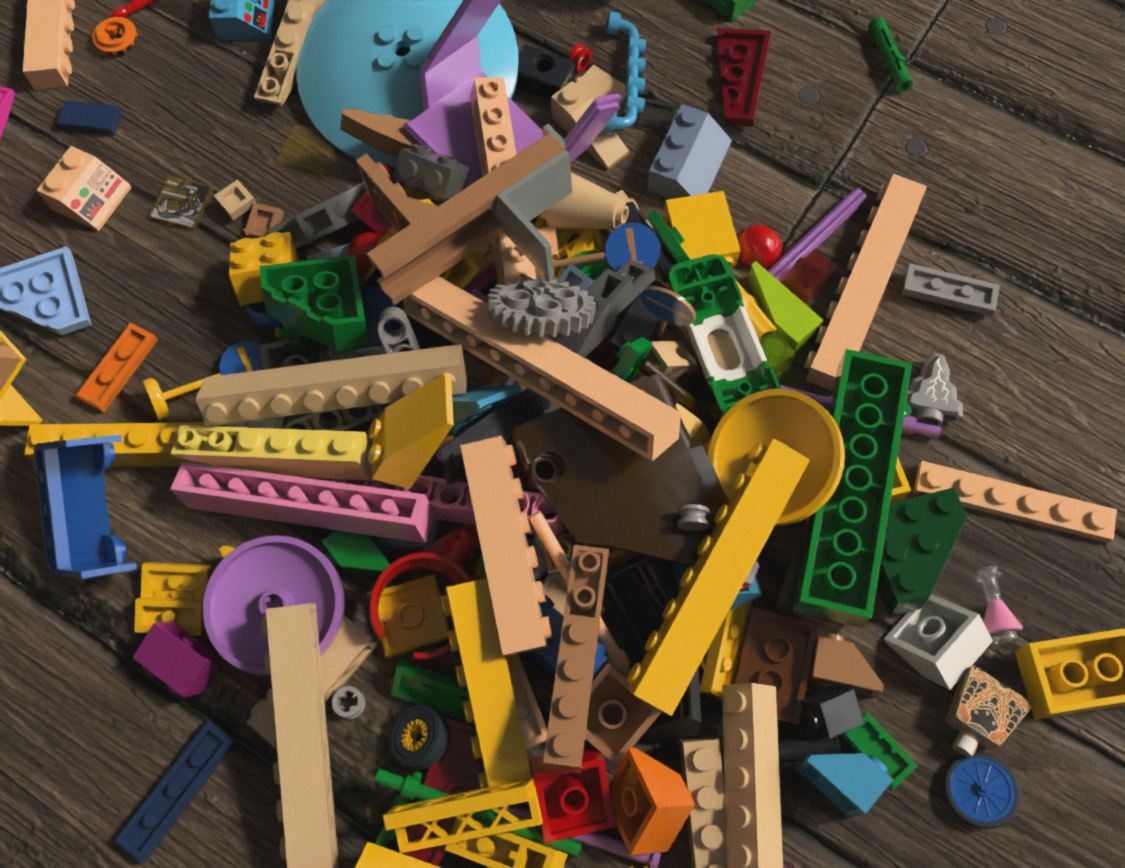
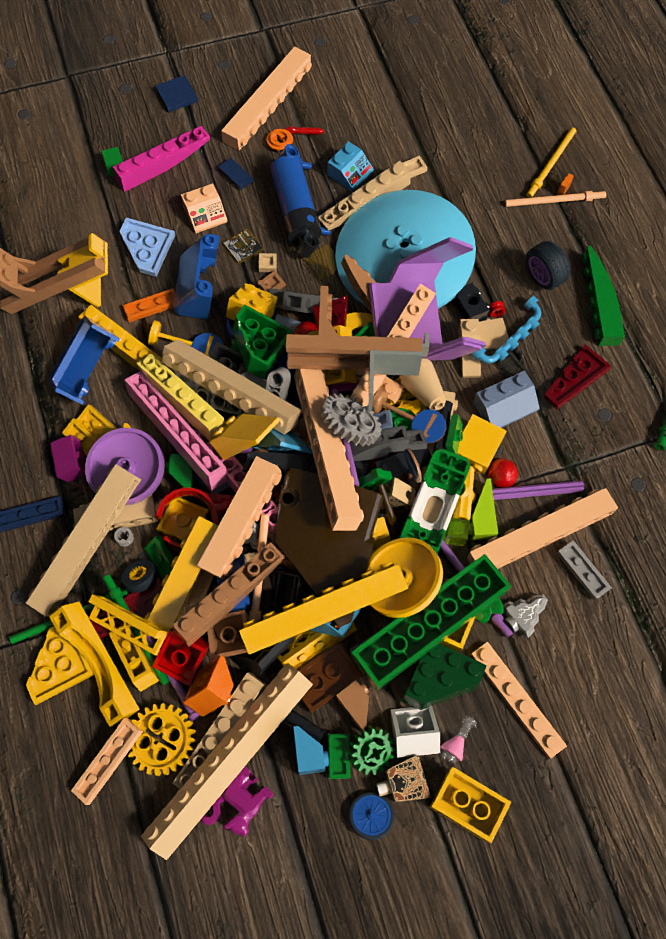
camera: 35 degrees right, 0 degrees up
(164, 308) = (191, 293): none -> blue windscreen
(208, 94) = (296, 202): none -> blue piece
(431, 172) = (362, 316): dark grey brick -> none
(693, 517) = (335, 573): light grey bush -> none
(809, 275) = (513, 507): clear red slope -> none
(831, 712) = (330, 718): black brick -> none
(913, 708) = (376, 750): none -> green gear

